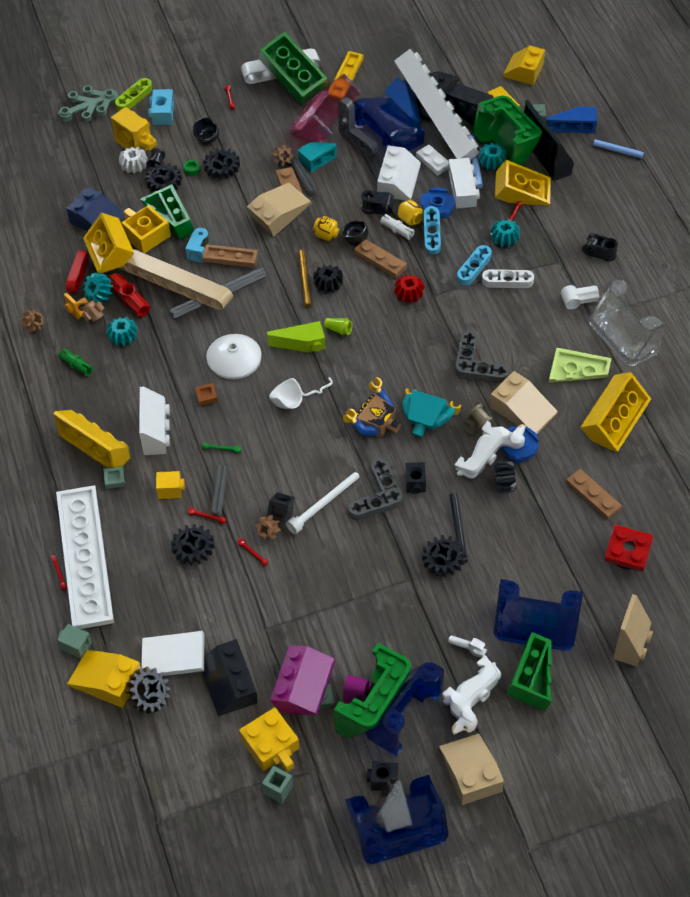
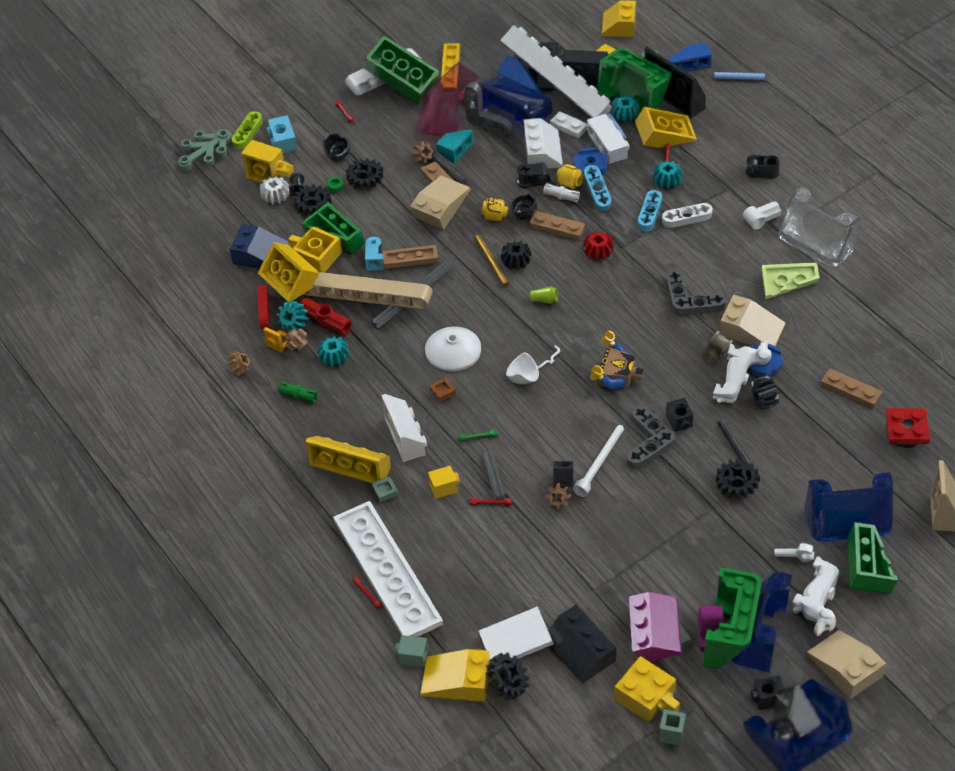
camera: 15 degrees left, 5 degrees down
(200, 539) = (490, 531): black gear -> none
(241, 542) = (535, 518): red hinge -> none
(298, 338) = (513, 315): lime slope -> none
(427, 411) = (664, 352): teal torso -> none
(616, 412) = (841, 309): yellow slope -> none

